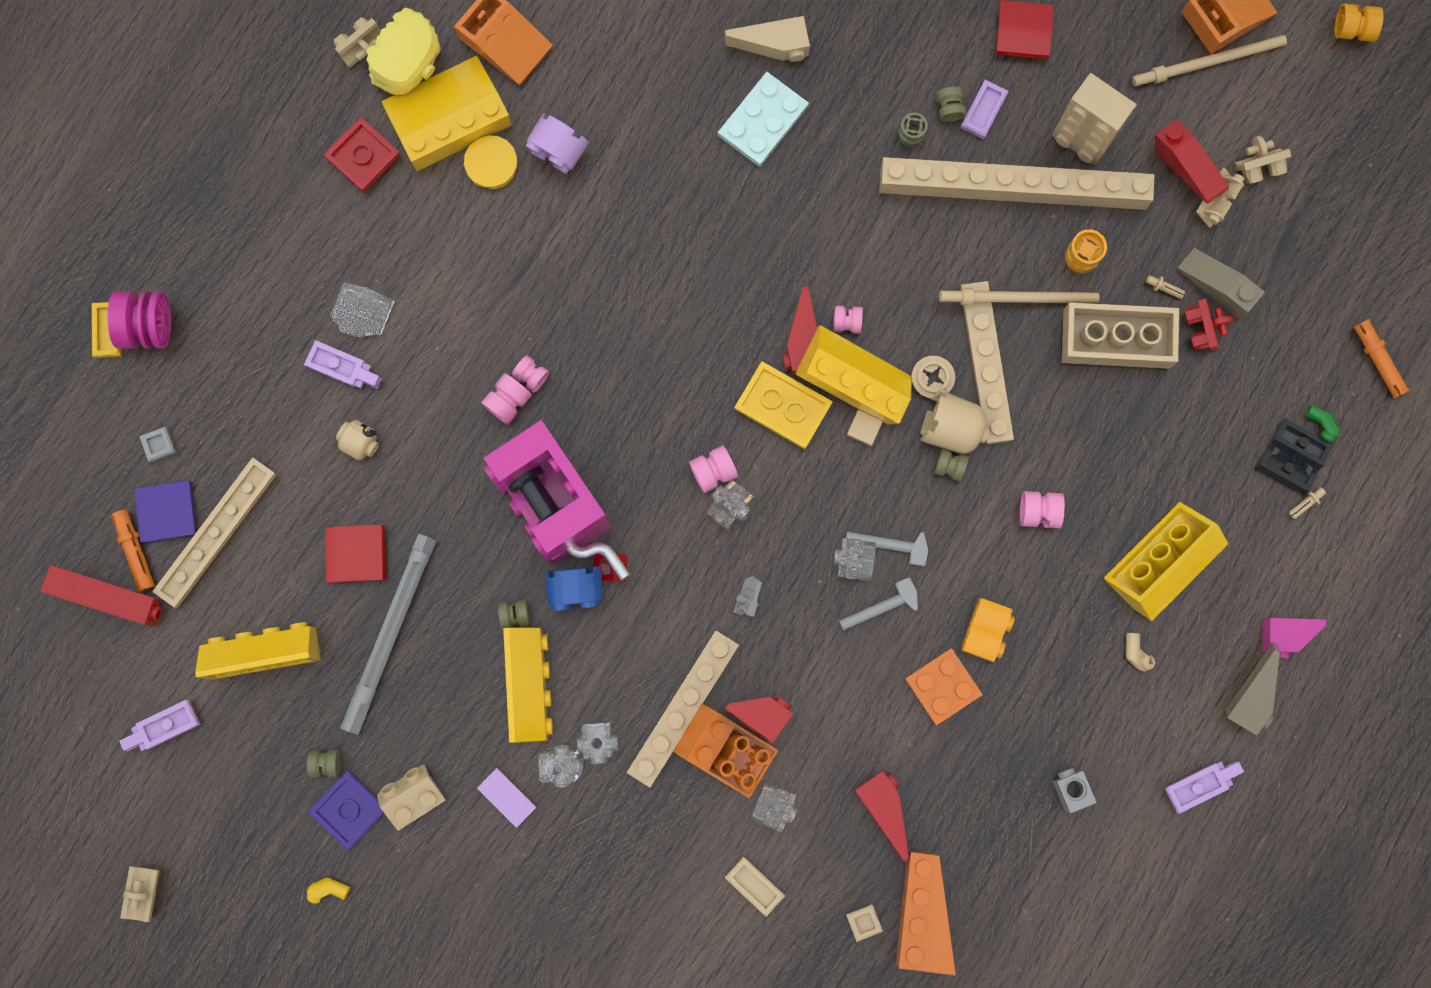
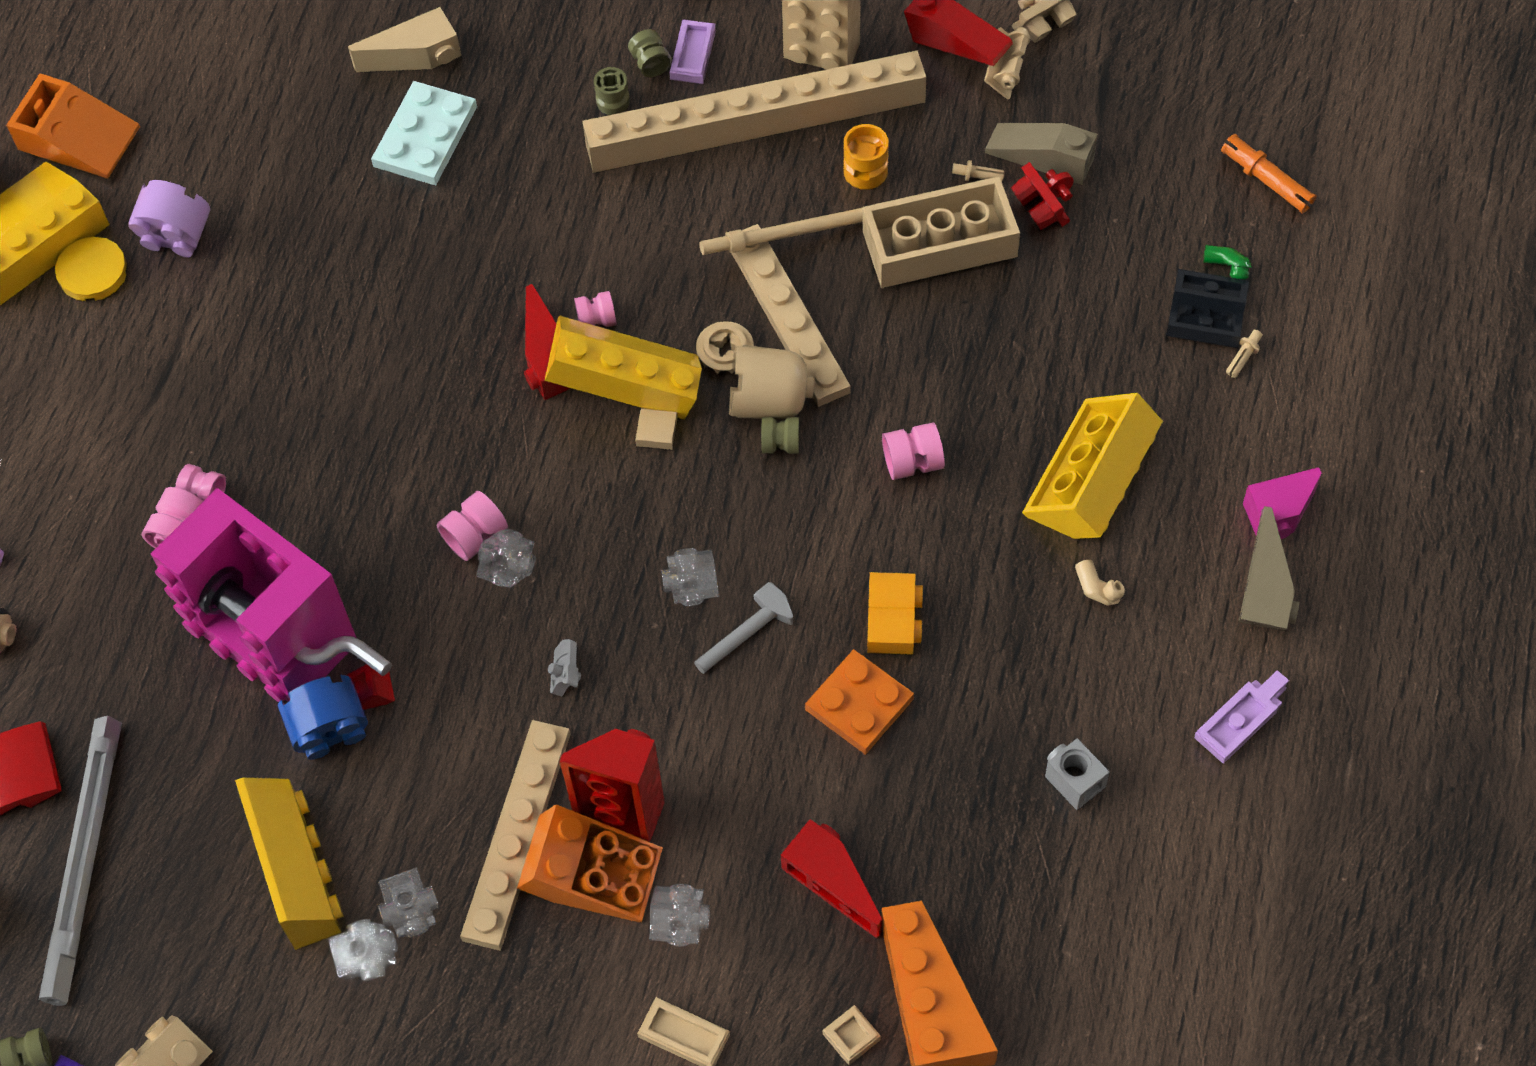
camera: 15 degrees left, 20 degrees down
(507, 614) = (254, 769): olive wheel -> none
(507, 797) = (300, 1022): lavender tile -> none
(783, 405) = (542, 430): yellow plate -> none
(917, 550) = (770, 548): light grey piece -> none

